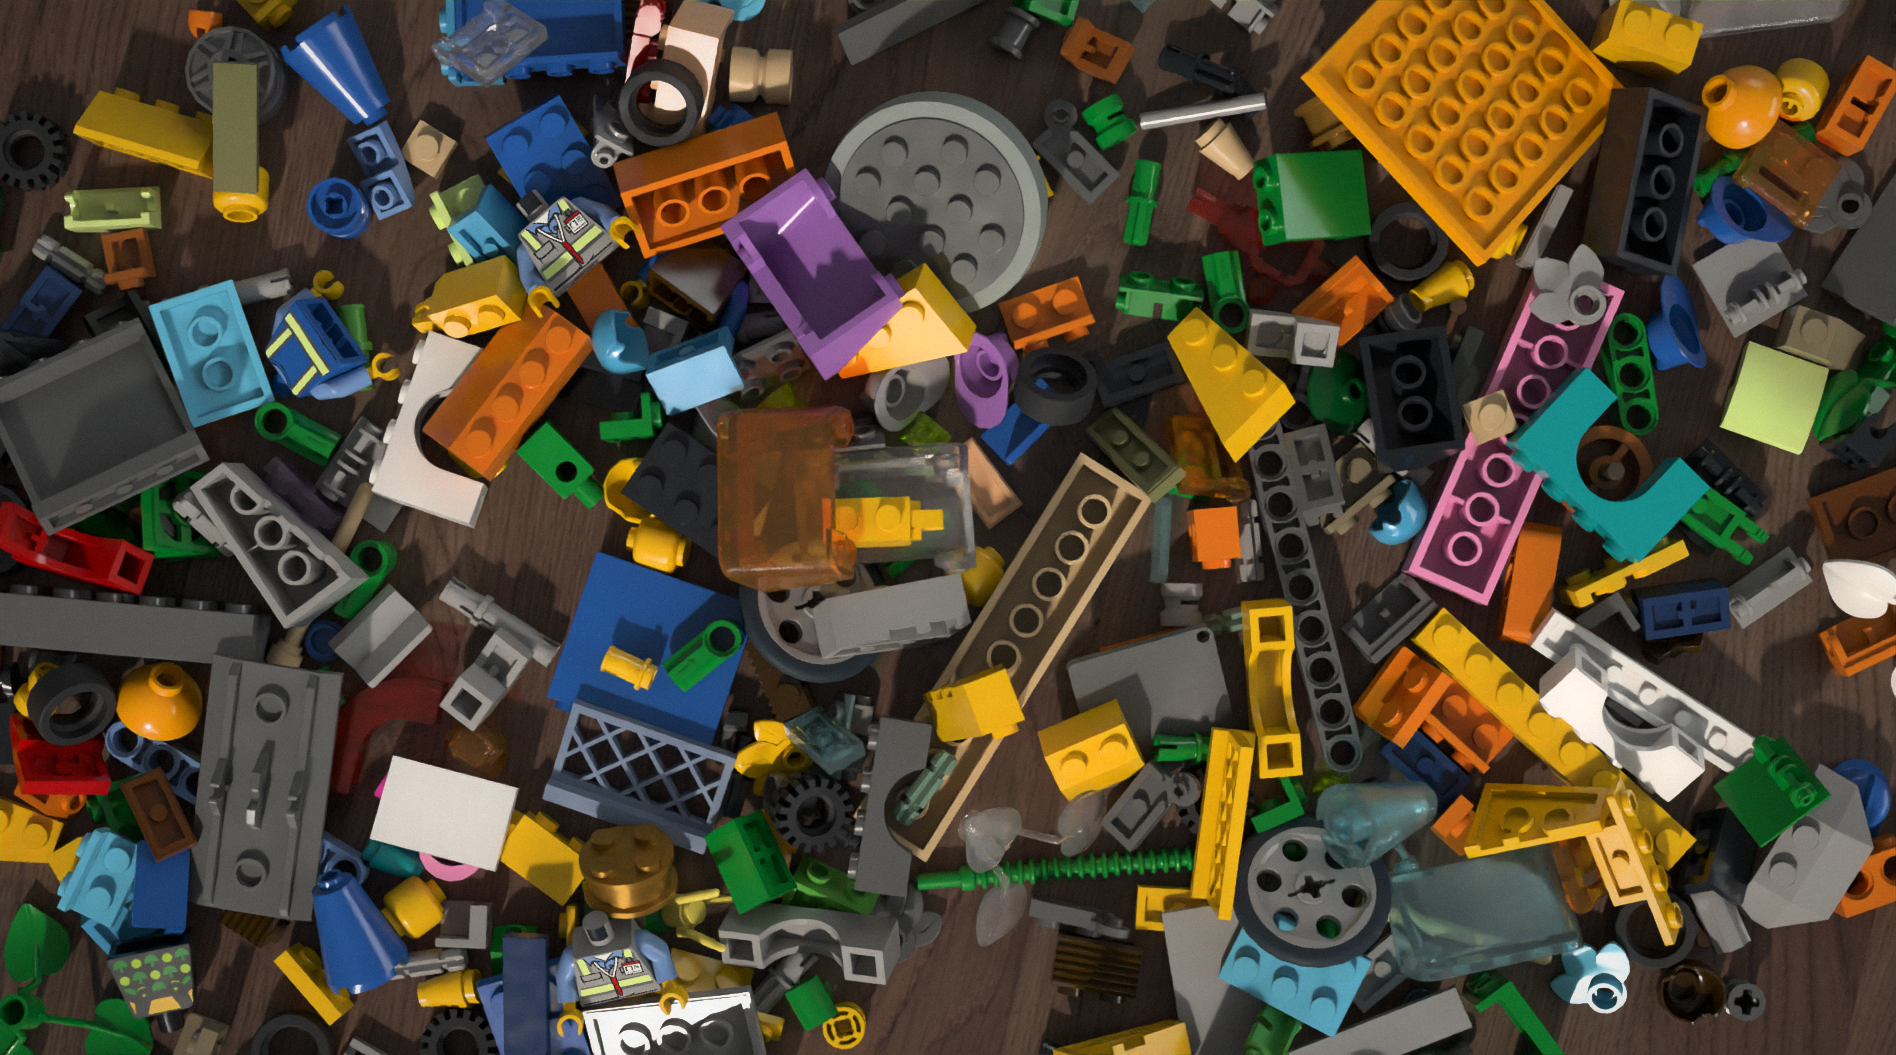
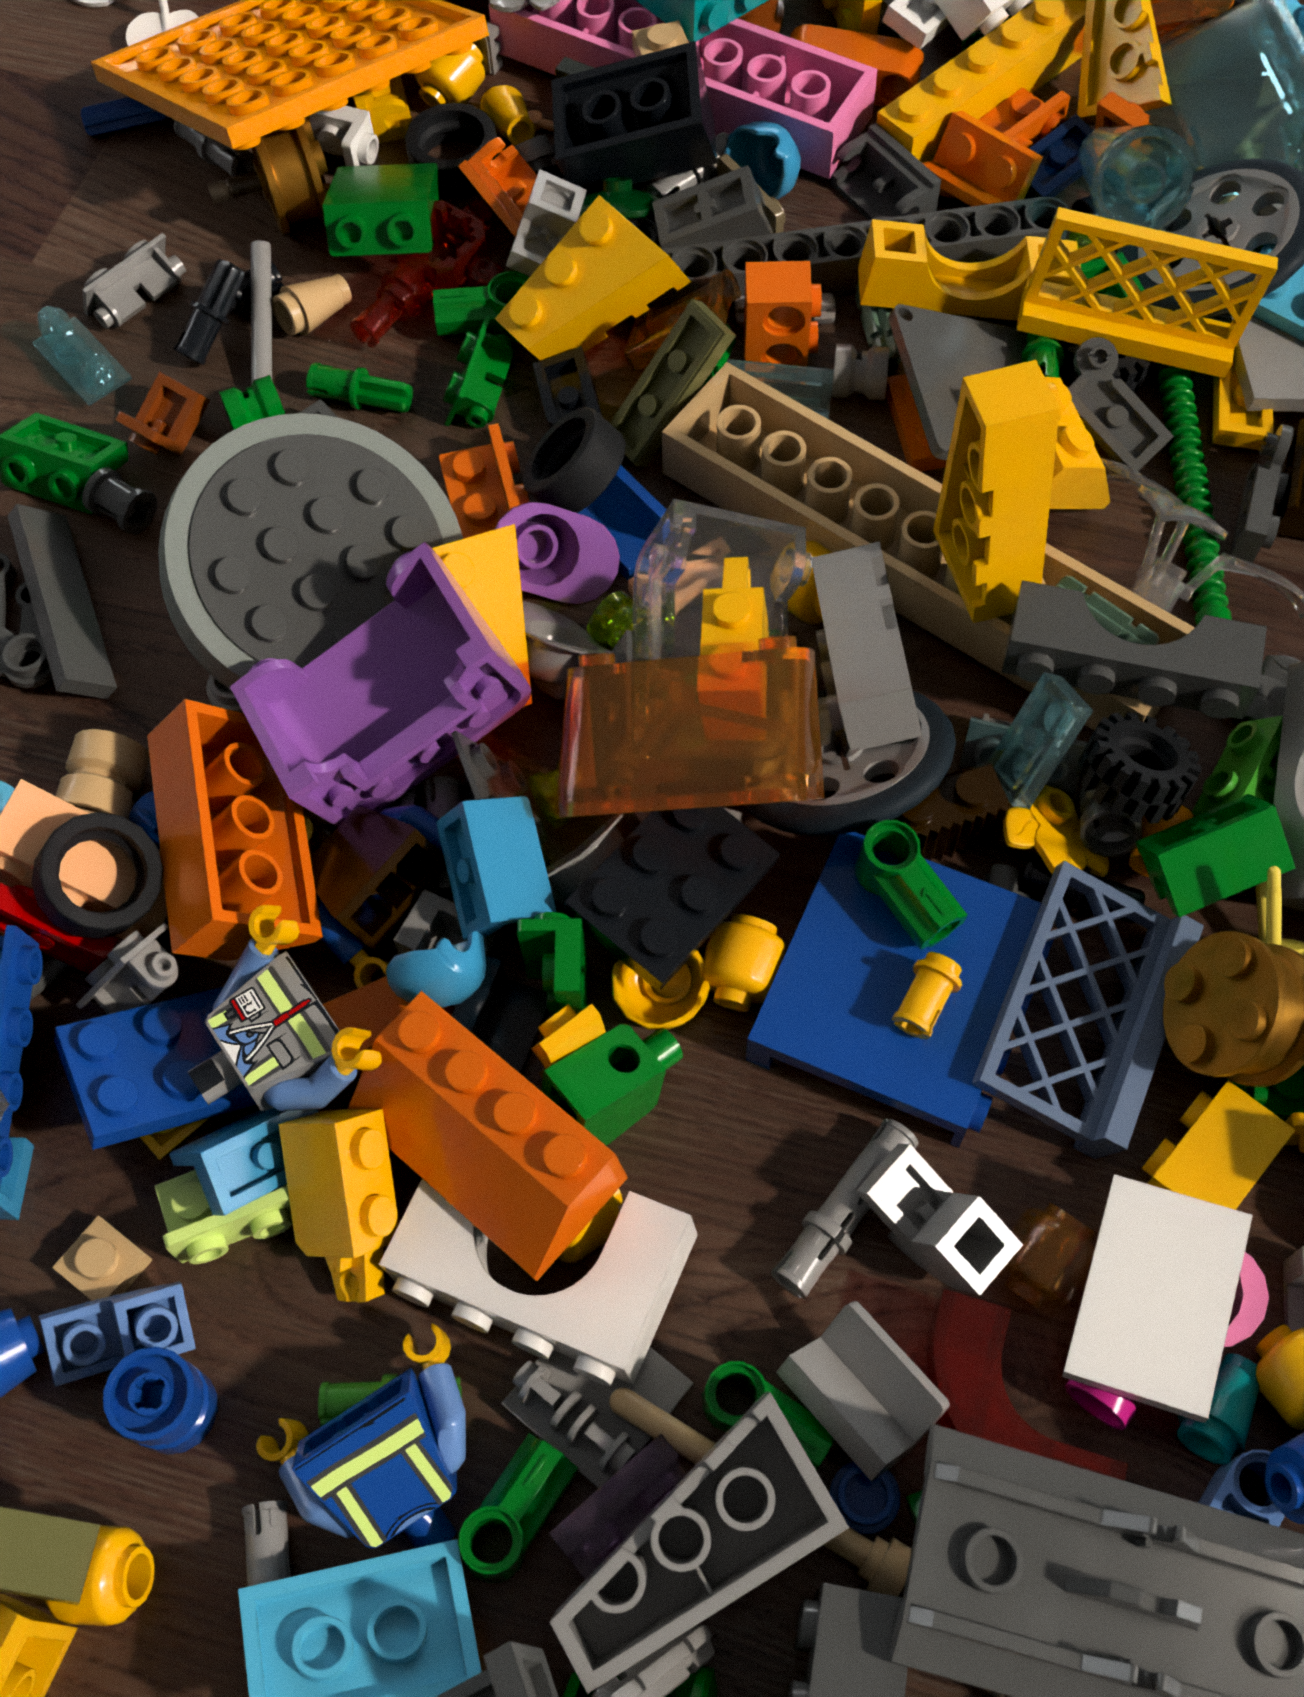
camera: 80 degrees left, 25 degrees down
(581, 434) = (567, 1033): none -> yellow slope

